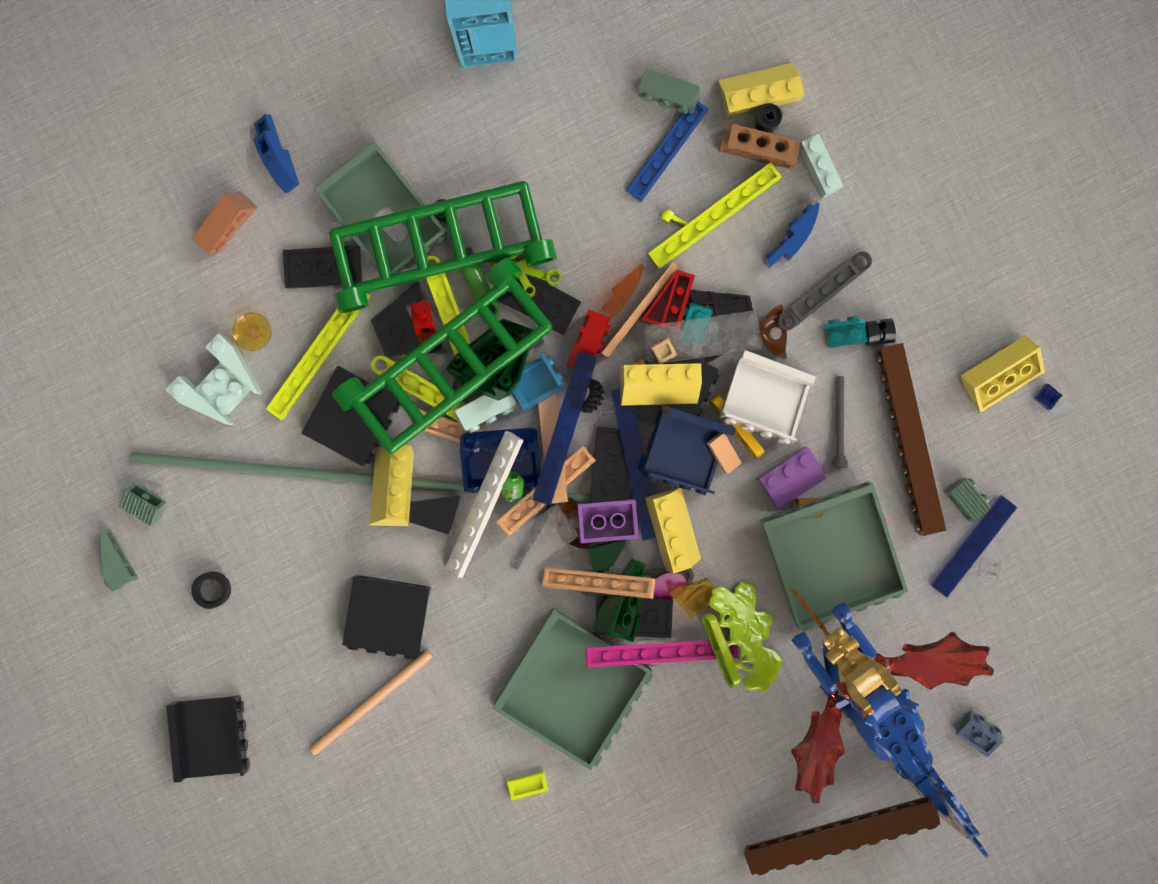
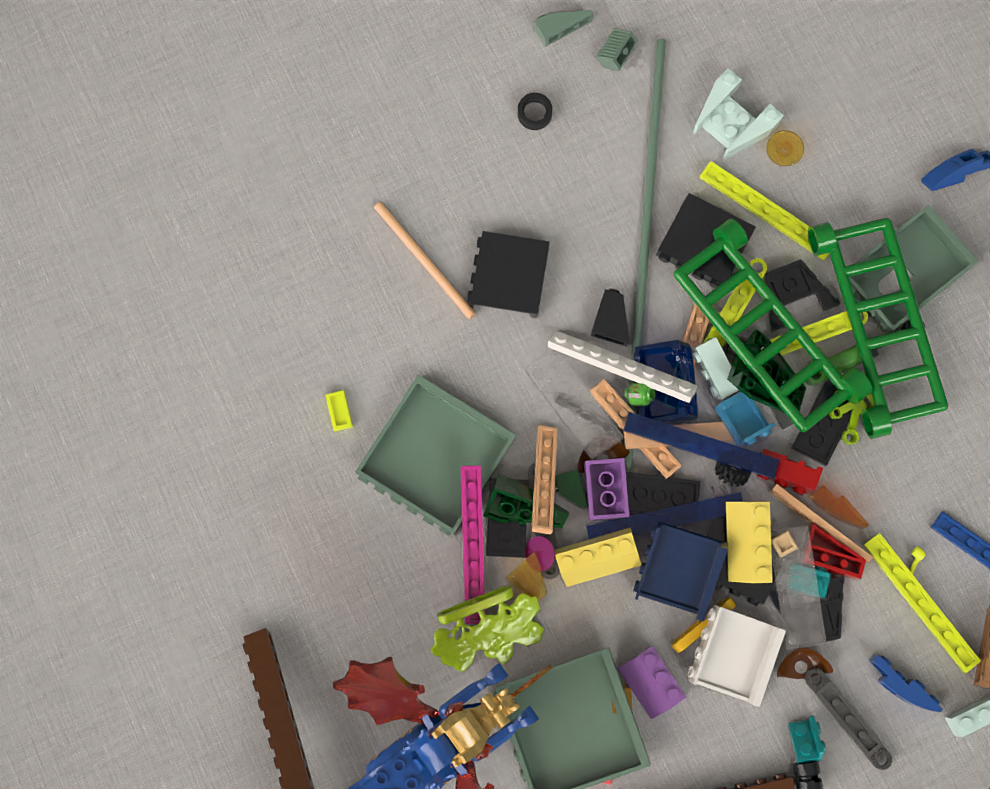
camera: 95 degrees right, 10 degrees down
(207, 737) = (392, 108): black panel -> none
(224, 222) = (891, 122): nougat wedge -> none
(318, 267) = (850, 207): black tile -> none
(392, 487) = (638, 279): light yellow slope -> none
(423, 317) = (809, 307): red torso -> none
(724, 453) = (676, 610): light nougat tile -> none
(840, 460) = (670, 734): dark grey piece -> none

